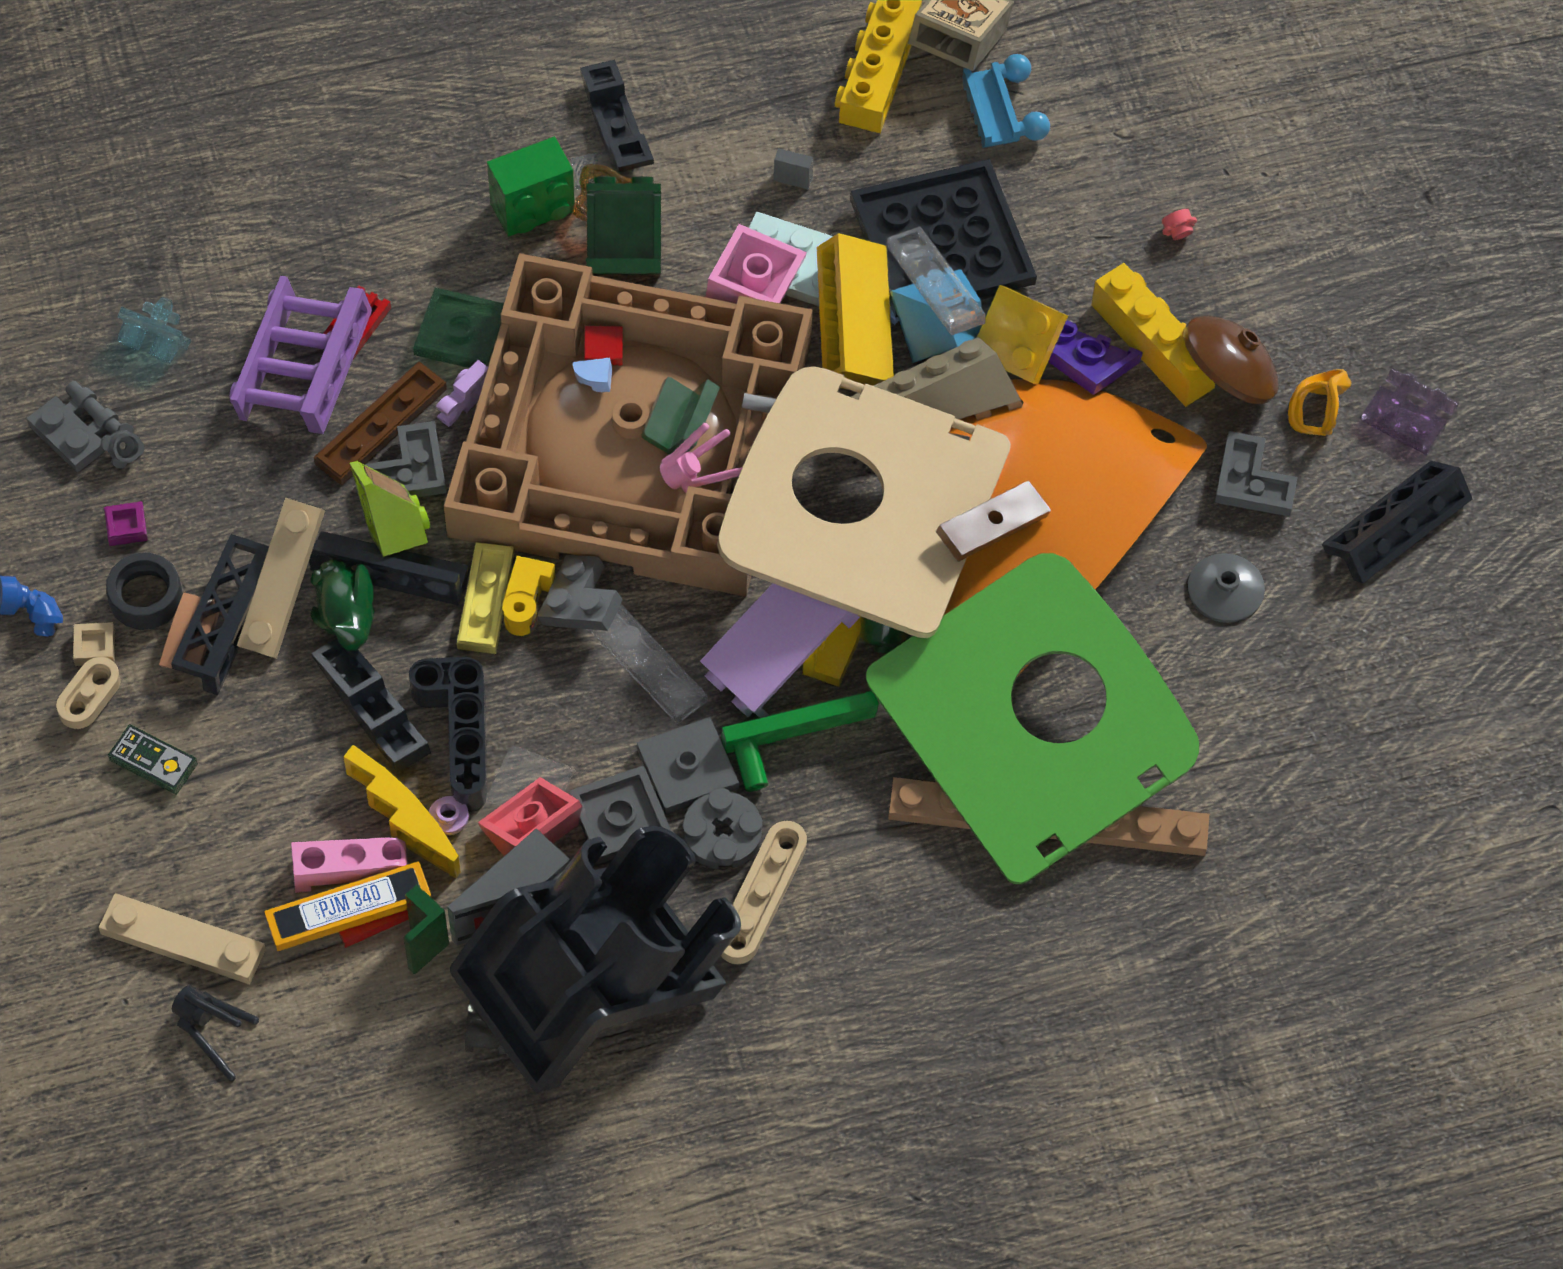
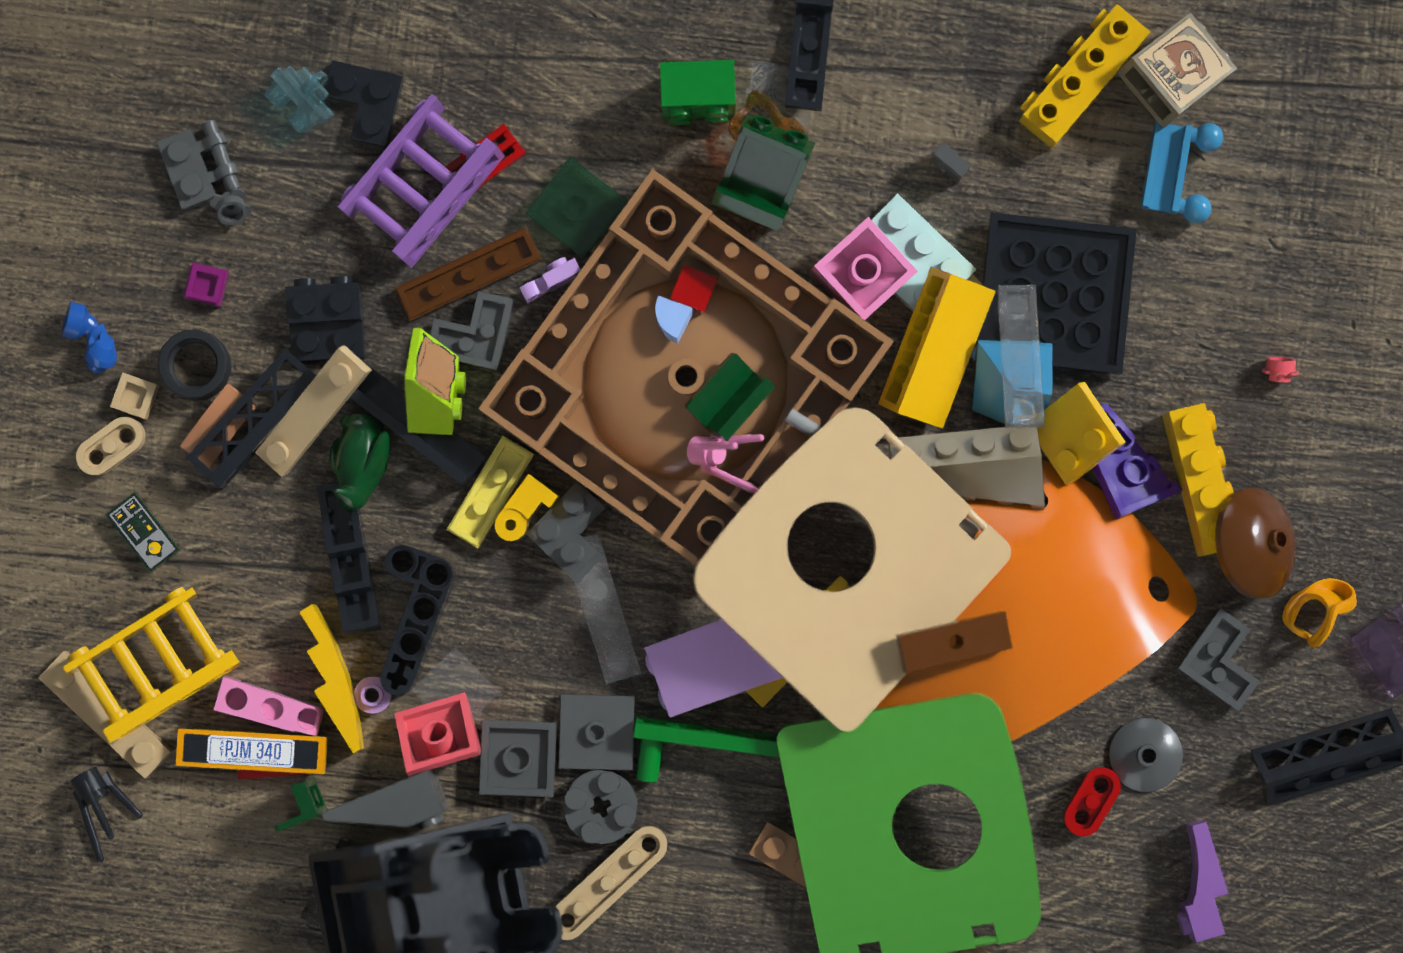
camera: 25 degrees right, 25 degrees up
(221, 307) = (374, 93): none -> black plate
(229, 896) = (152, 701): none -> yellow fence
(251, 501) = (325, 318): none -> black plate
(1195, 643) = (1093, 802): none -> red plate
(1350, 694) = (1199, 911): none -> medium lavender slope

